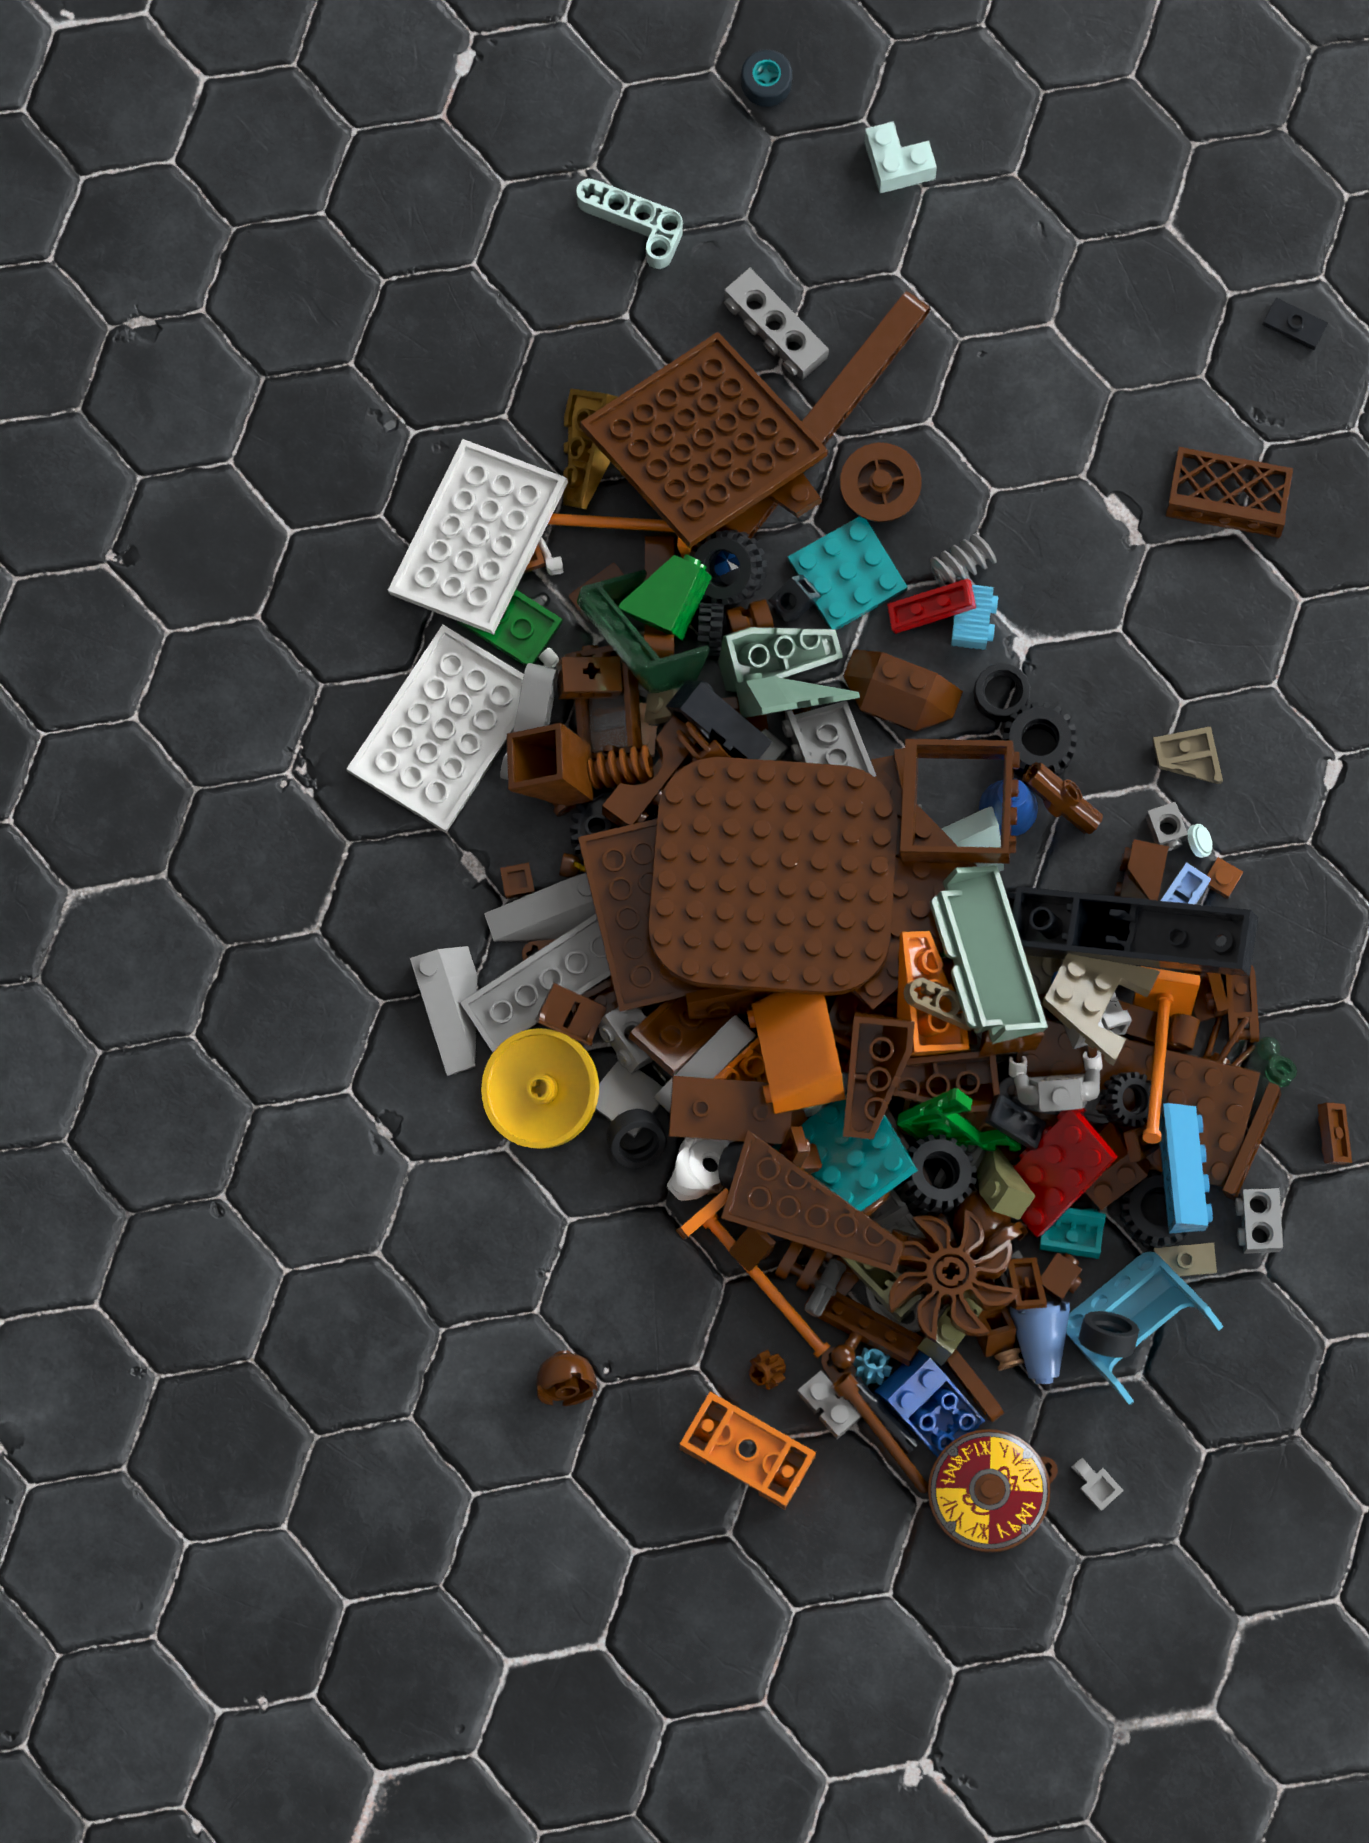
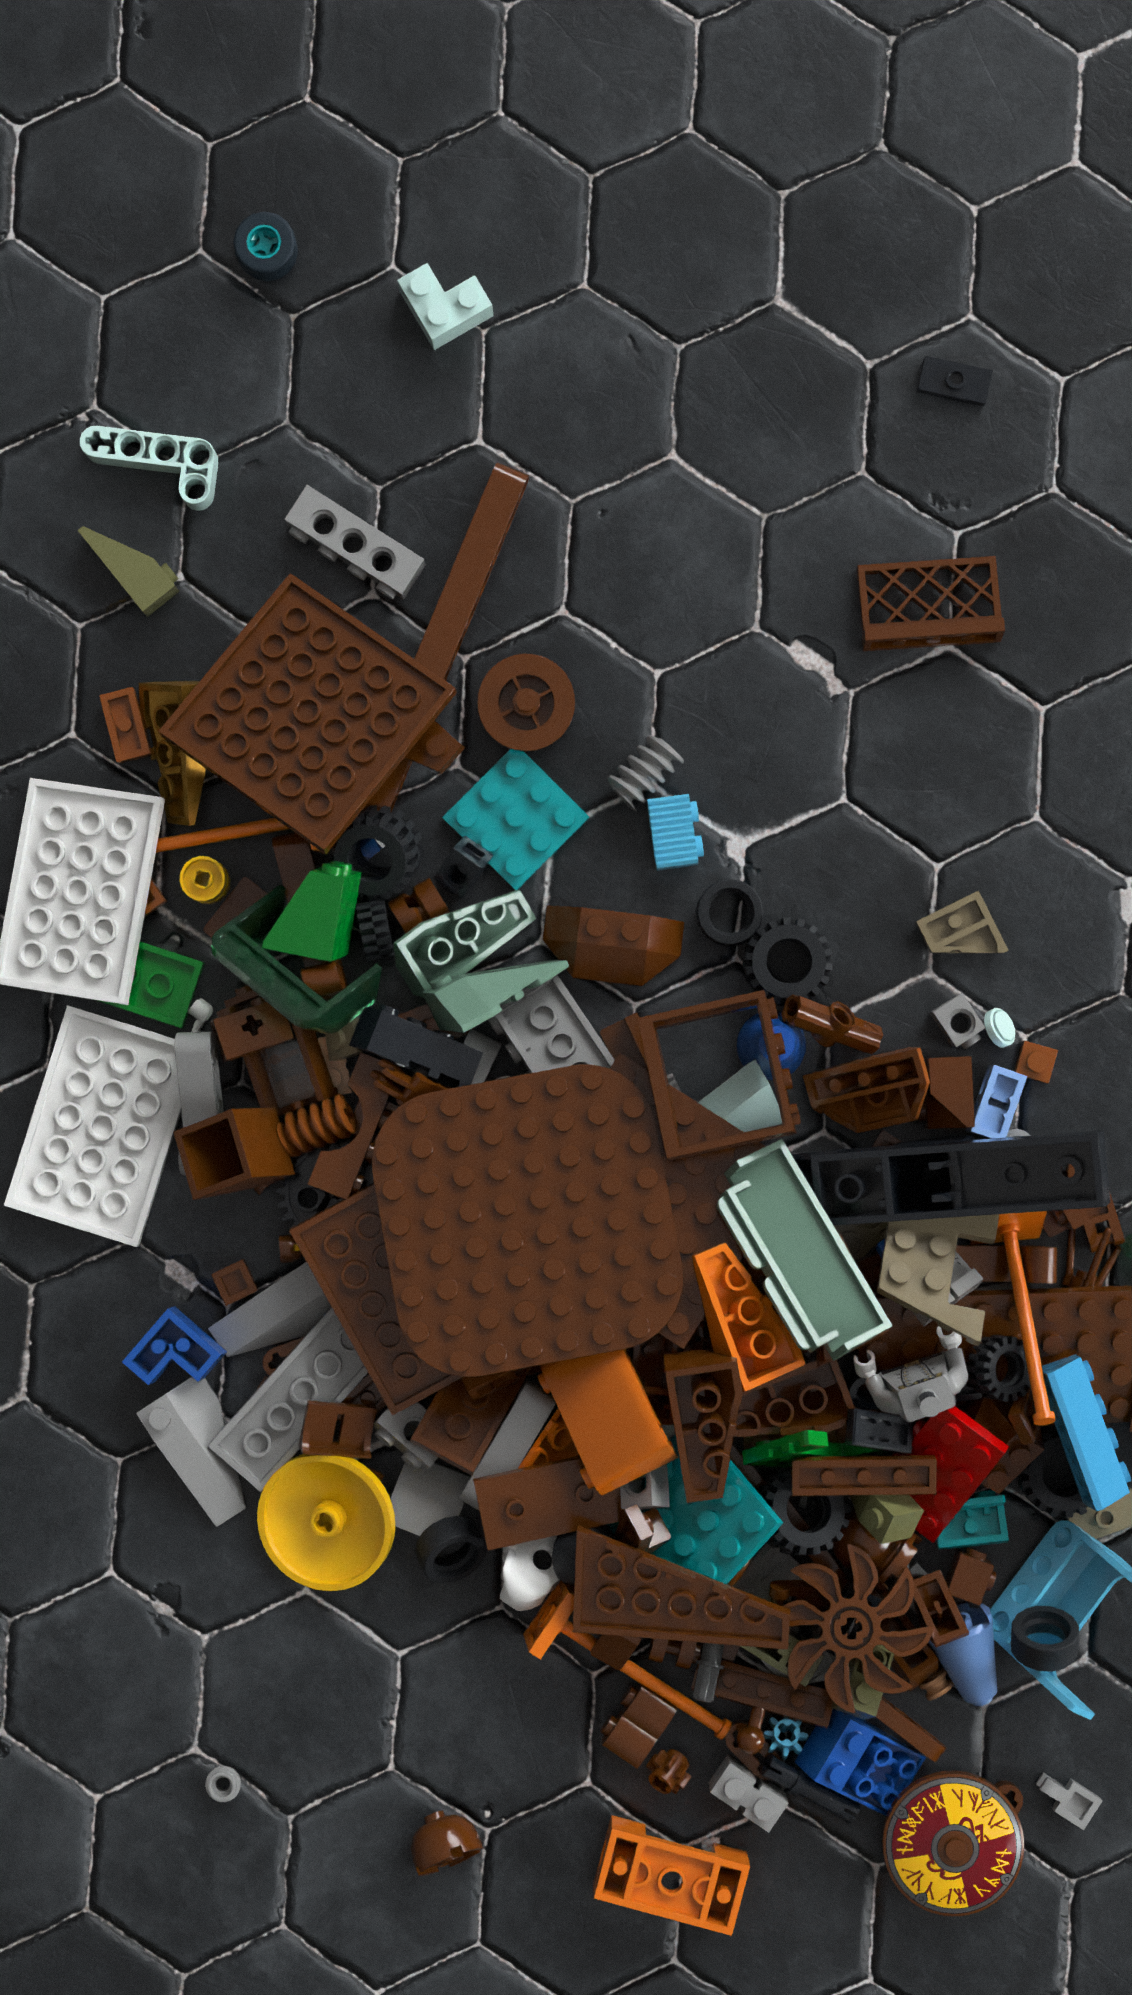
camera: 10 degrees left, 10 degrees up
(390, 1276) = (217, 1793): none -> light grey plate
(453, 910) = (174, 1339): none -> blue brick
(551, 418) = (125, 725): none -> dark orange plate
(553, 565) = (177, 898): white hand -> none
(582, 554) = (205, 880): none -> yellow wheel
(593, 301) = (137, 573): none -> olive slope
(752, 1325) = (637, 1724): none -> reddish brown brick
(815, 1122) = (653, 1496): none -> light grey brick
(847, 1388) = (764, 1779): reddish brown piece -> none
(931, 606) = (623, 834): red tile -> none
(931, 1005) = (752, 1331): dark tan beam -> none
(993, 1151) = (863, 1475): none -> reddish brown plate
(1080, 858) = (871, 1090): none -> dark orange wedge

